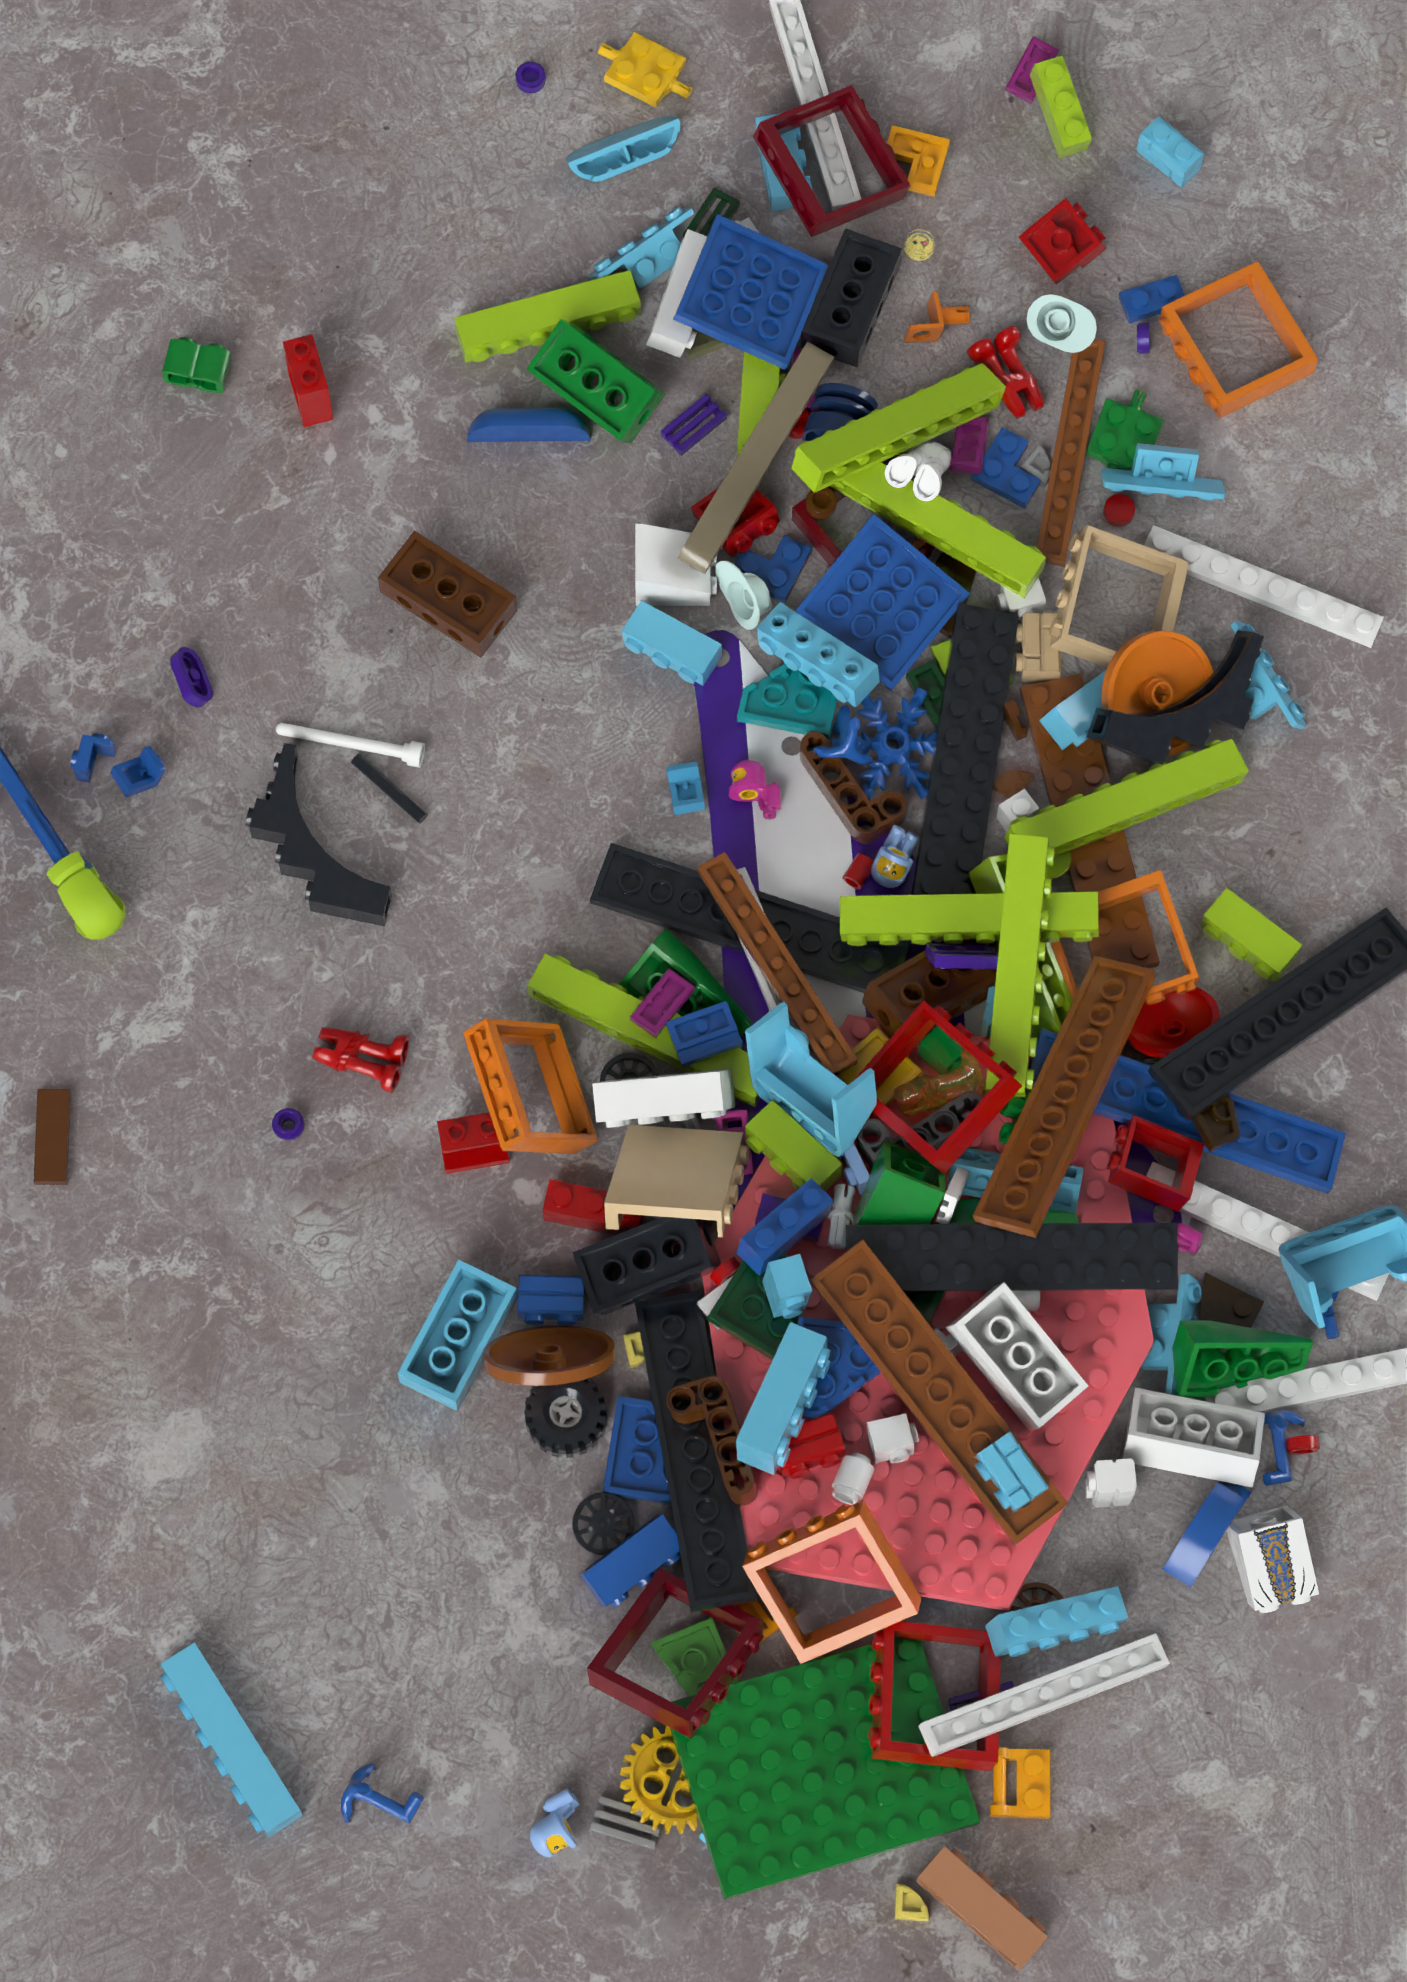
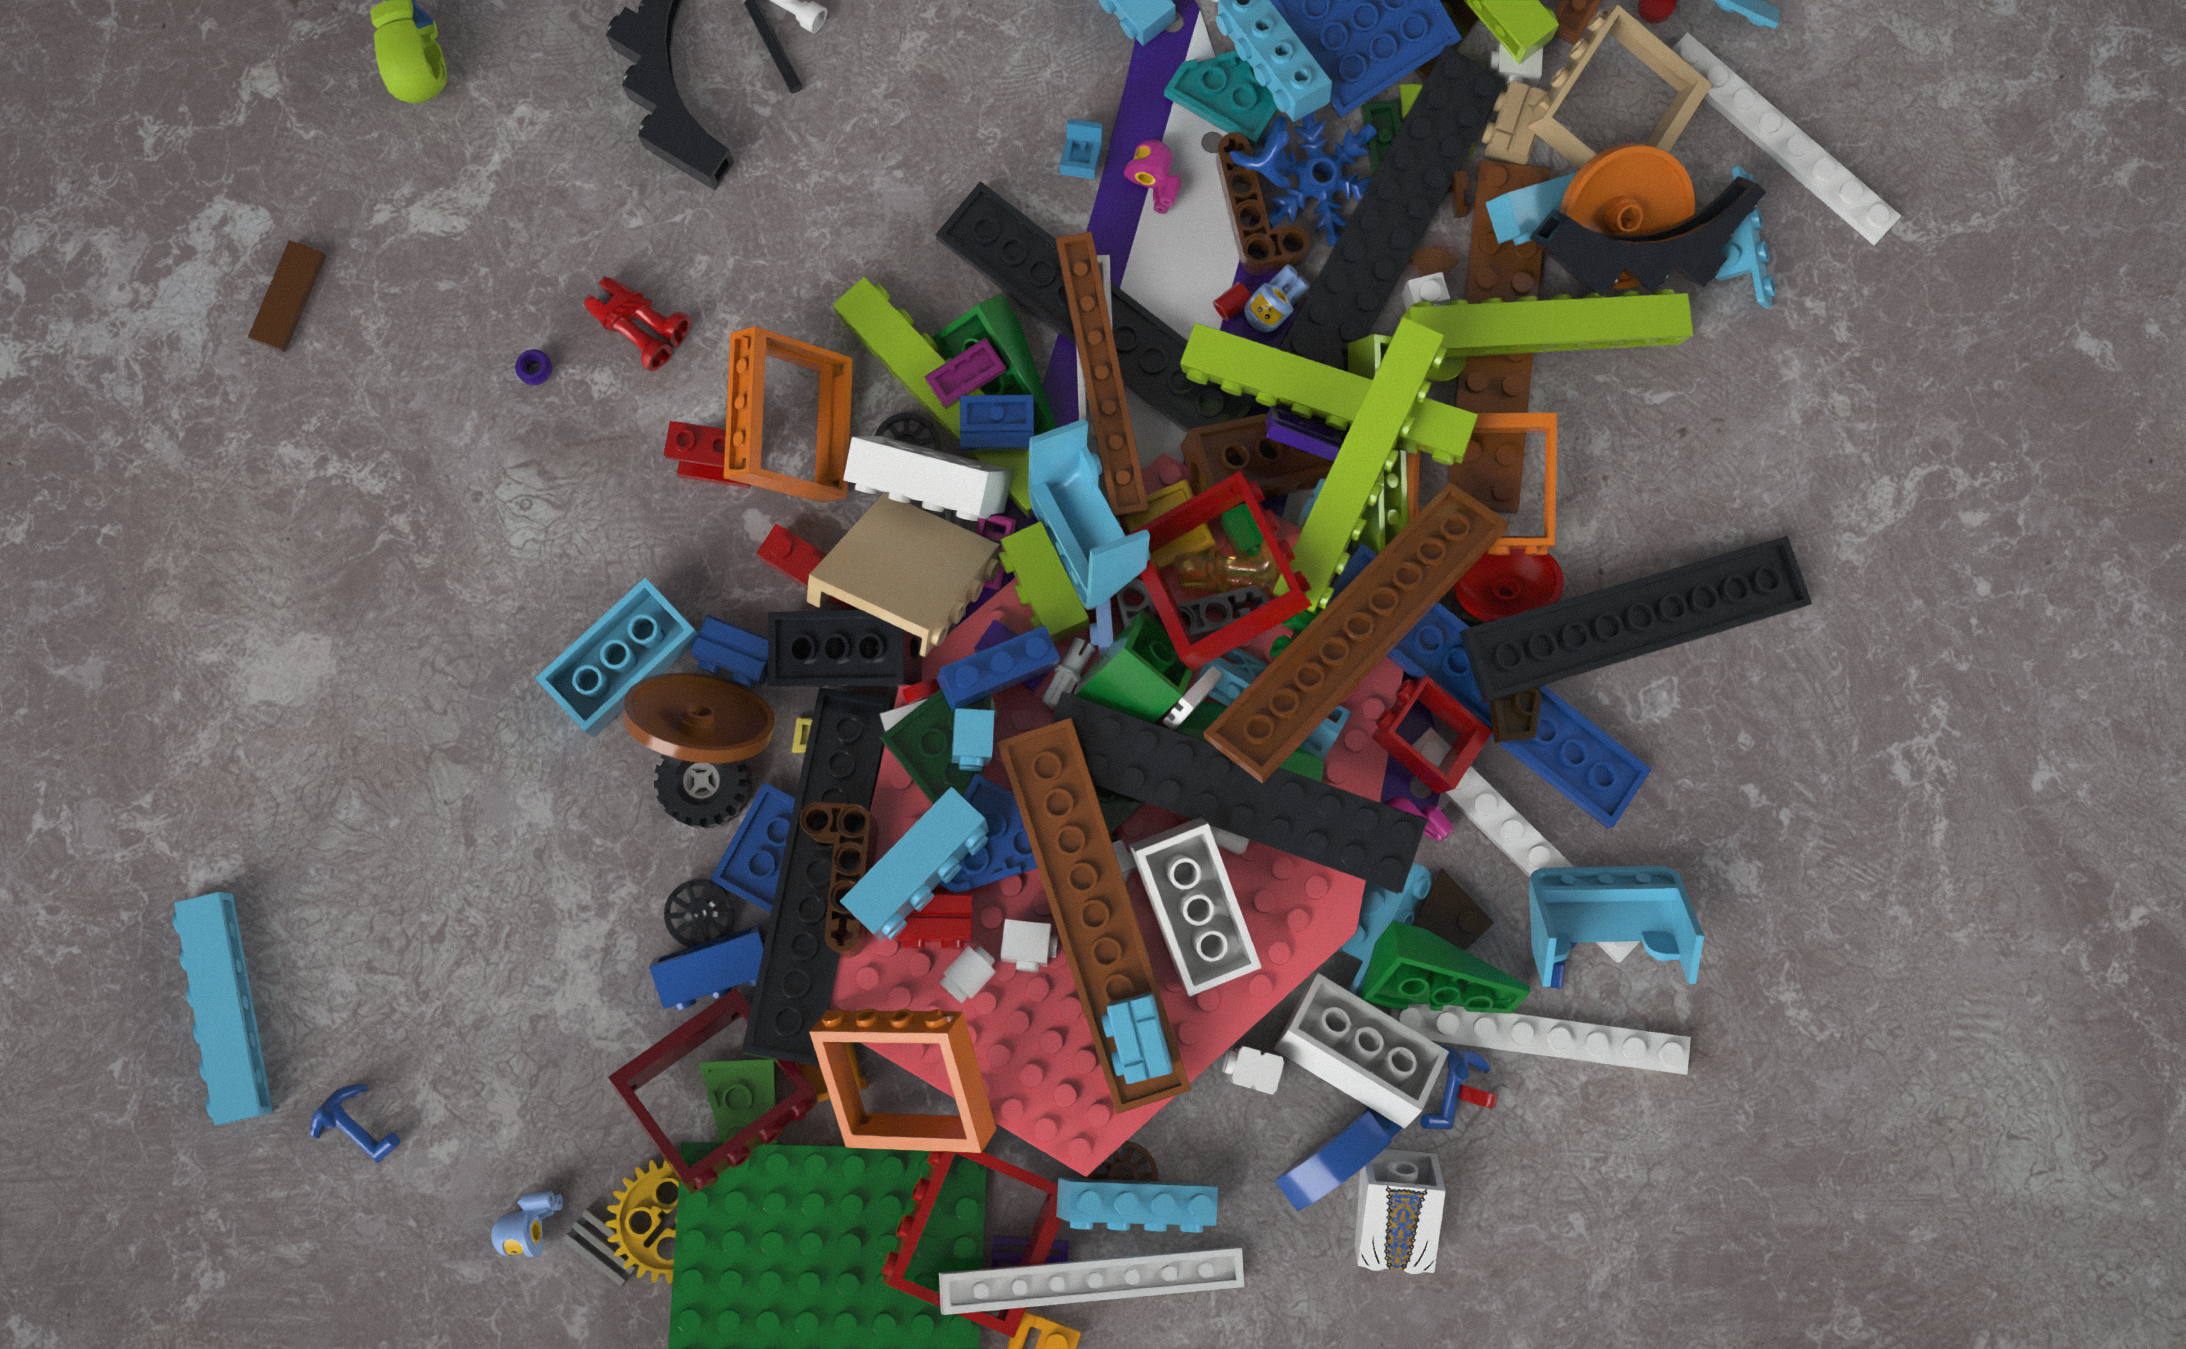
camera: 20 degrees right, 10 degrees up
(1250, 936) = (1627, 516): lime brick -> none

